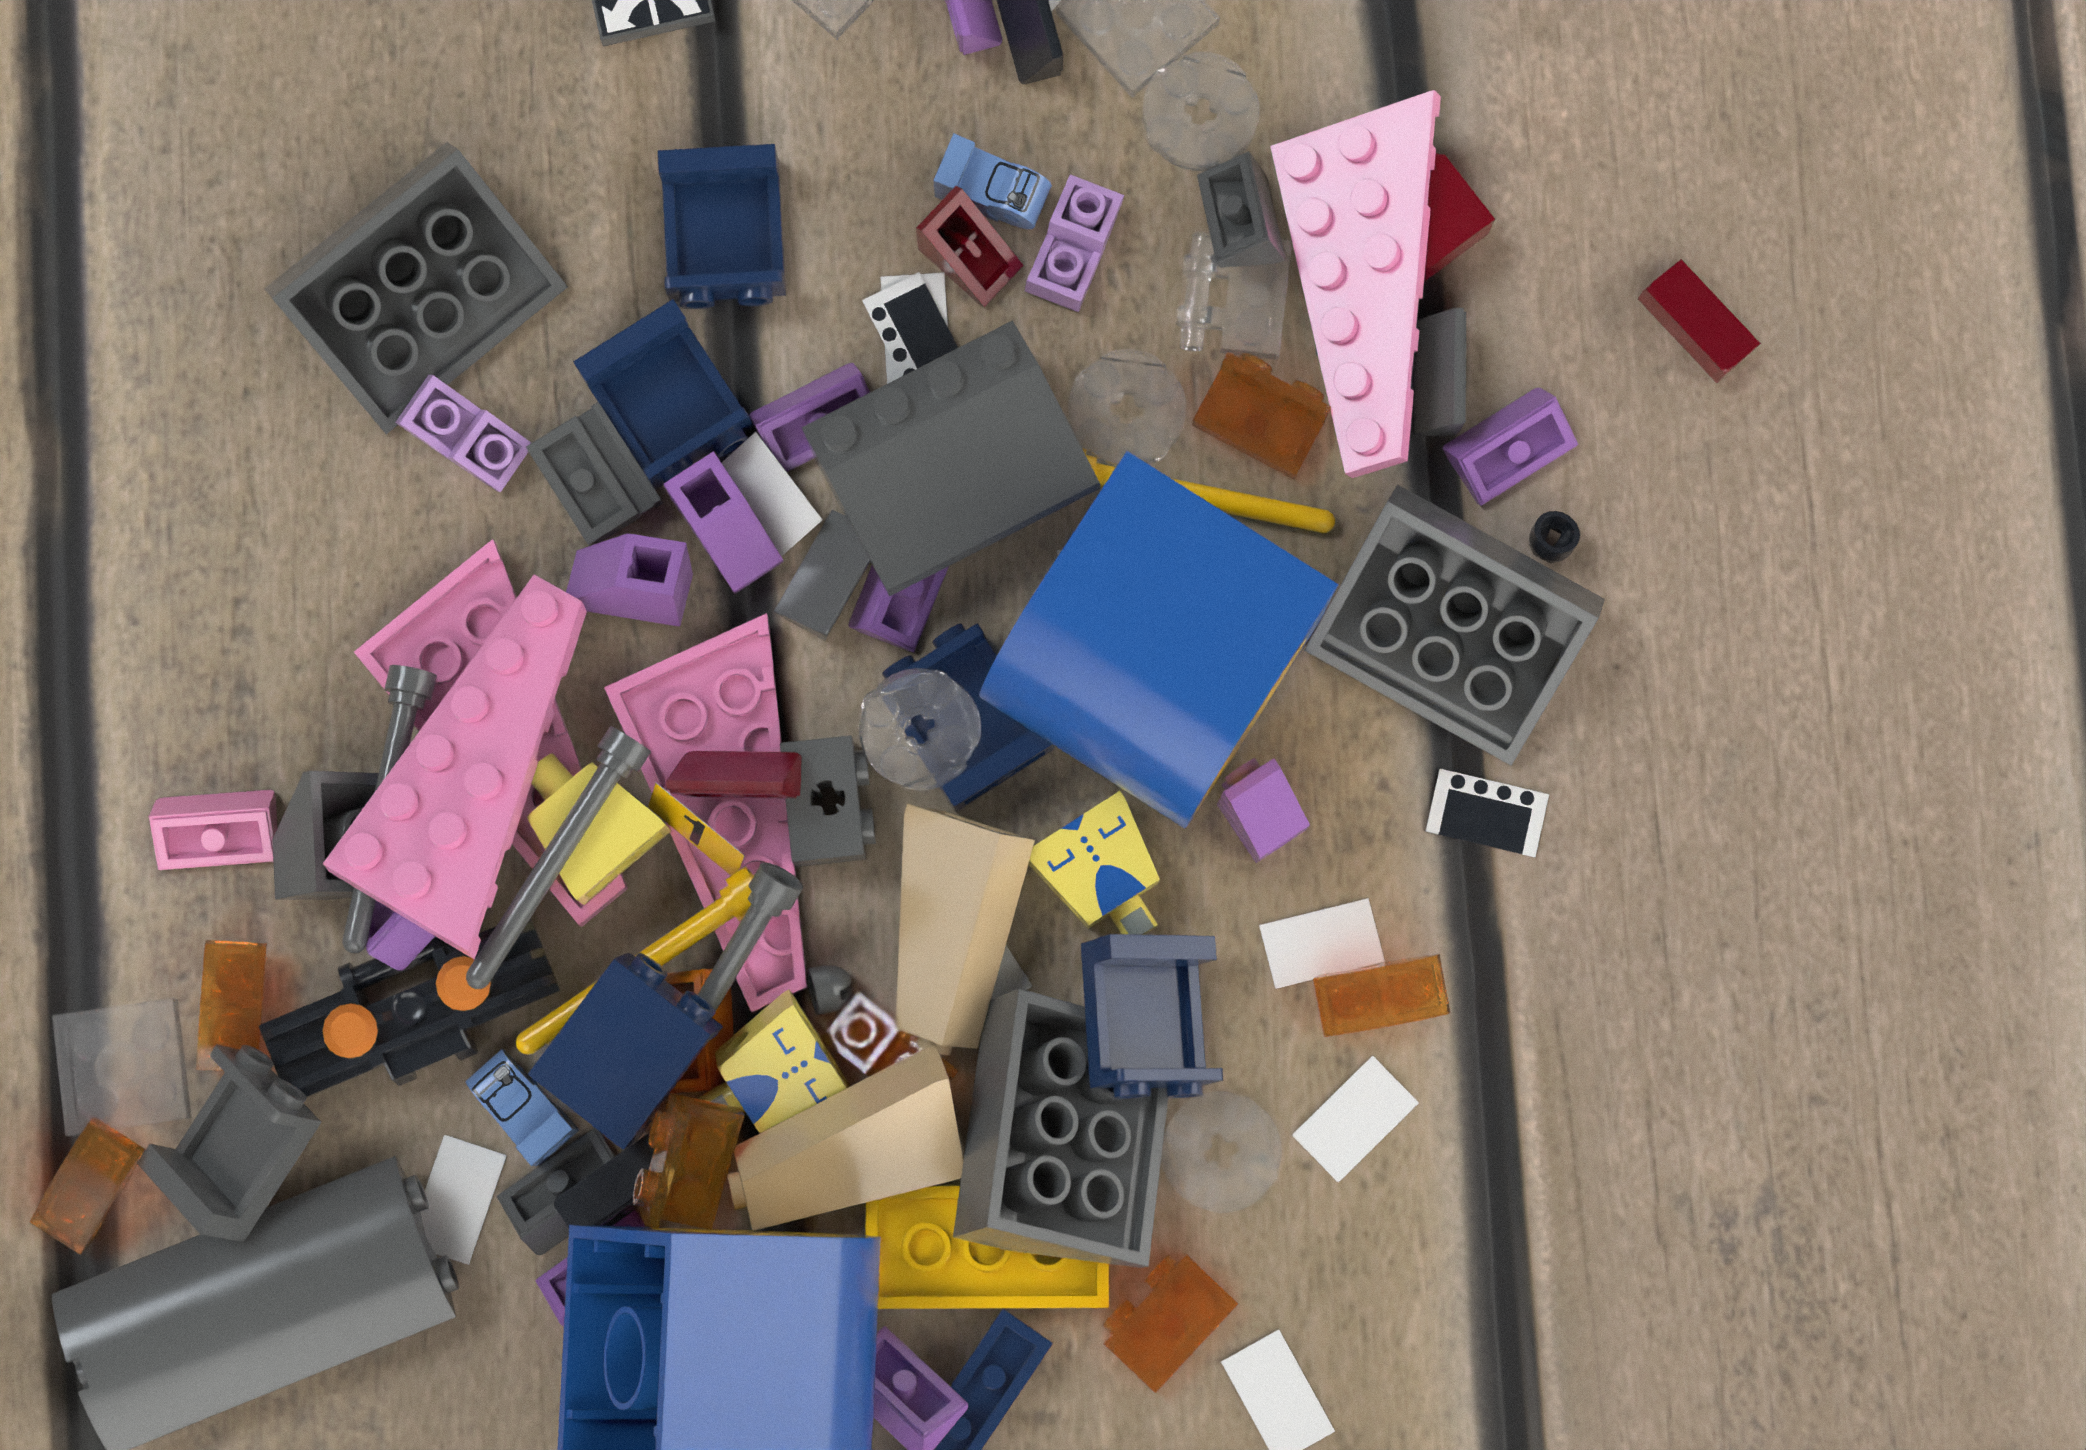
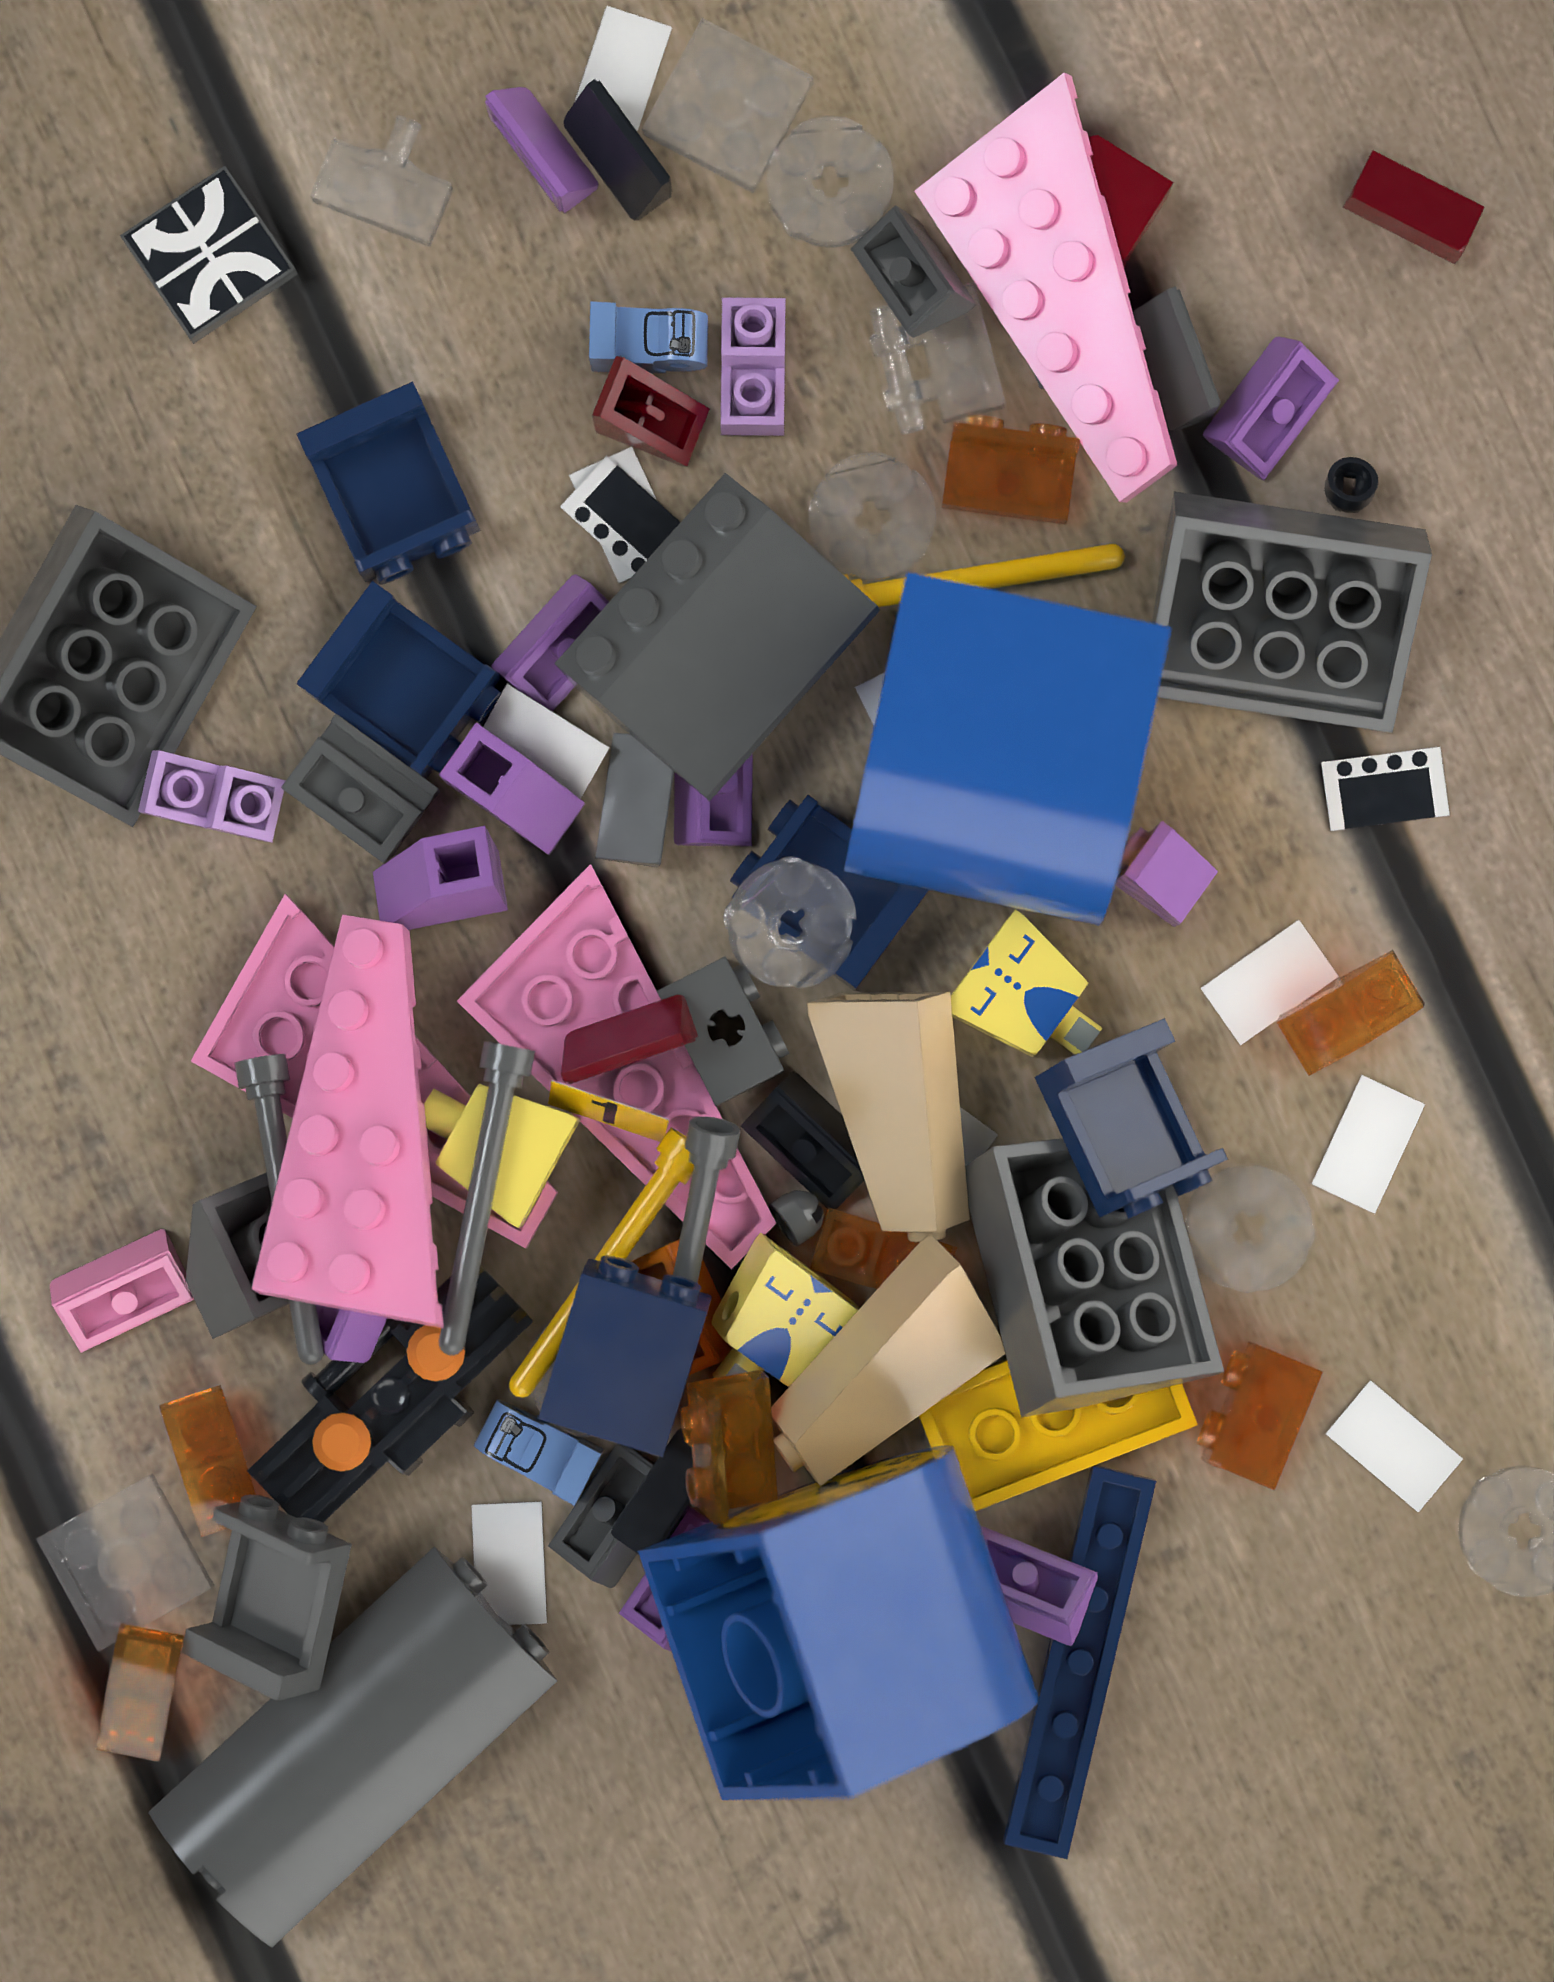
camera: 20 degrees left, 5 degrees up
(862, 925) = (807, 1140): none -> black slope

